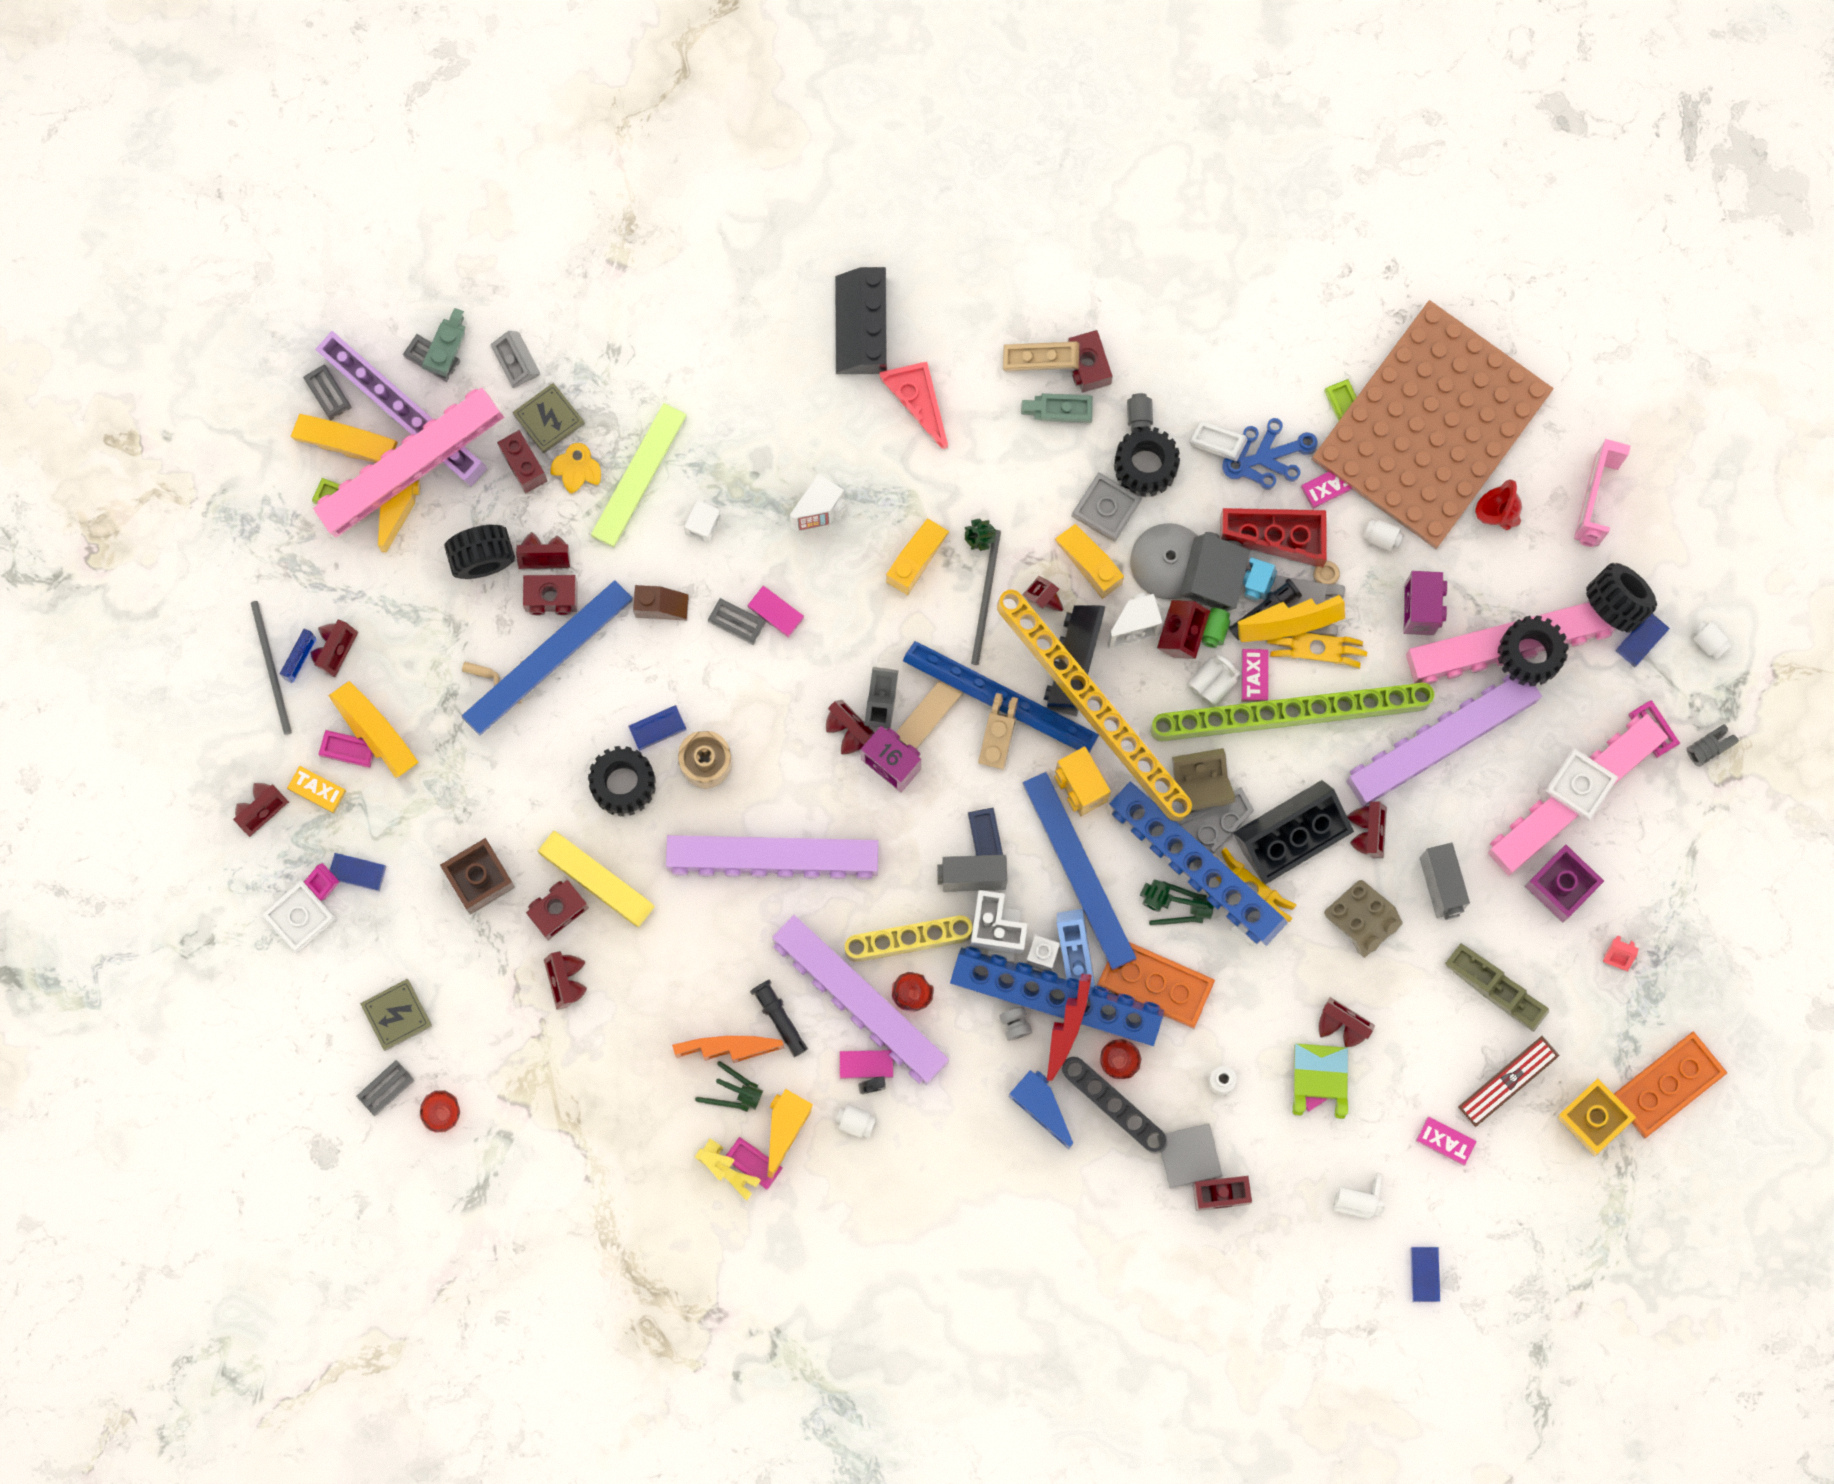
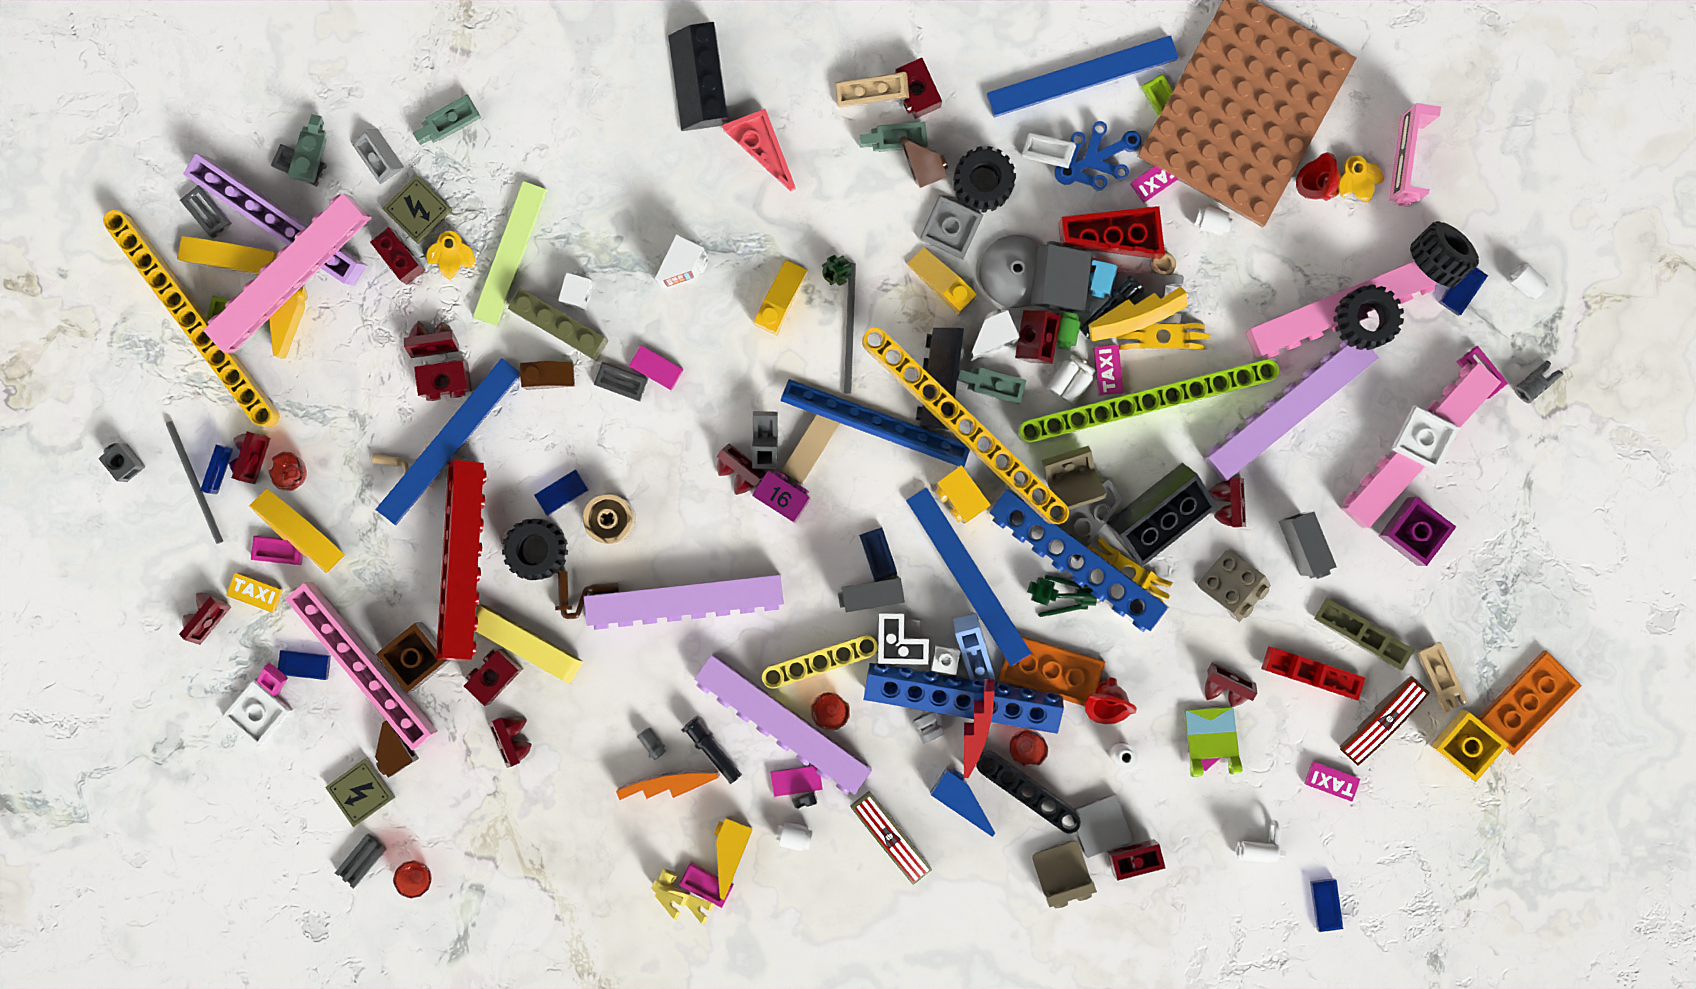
camera: 10 degrees left, 10 degrees up
(207, 642) = (131, 466): none -> dark grey brick
(292, 487) = (183, 310): none -> yellow beam
(373, 666) = (287, 471): none -> clear red hair
(421, 878) = (361, 665): none -> bright pink brick
(439, 974) = (392, 752): none -> reddish brown slope
(479, 551) = (368, 350): black tyre -> none
(543, 781) = (460, 561): none -> red brick
(594, 332) = (447, 120): none -> sand green hinge
(643, 837) = (563, 594): none -> reddish brown piece
(689, 558) = (558, 324): none -> olive arch
(716, 1003) = (651, 744): none -> dark grey pin
(748, 1095) = (691, 827): dark green plant -> none
(960, 1136) = (891, 837): none -> slope
(998, 734) = (878, 459): tan hinge -> none
(1043, 594) = (903, 321): dark red tile -> none
(1085, 436) = (924, 162): none -> reddish brown slope
(1130, 673) = (994, 384): none -> sand green hinge
(1140, 411) = (971, 132): dark grey brick -> none
(1141, 1200) = (1063, 874): none -> dark tan bracket
(1213, 1024) = (1109, 703): none -> red helmet
(1263, 371) = (1082, 76): none -> blue tile
(1424, 603) = (1260, 282): magenta brick -> none
(1438, 1021) = (1313, 673): none -> red slope
(1544, 516) = (1360, 182): none -> yellow plate
(1576, 1042) = (1441, 676): none -> tan hinge
(1621, 954) = (1474, 589): coral tile -> none

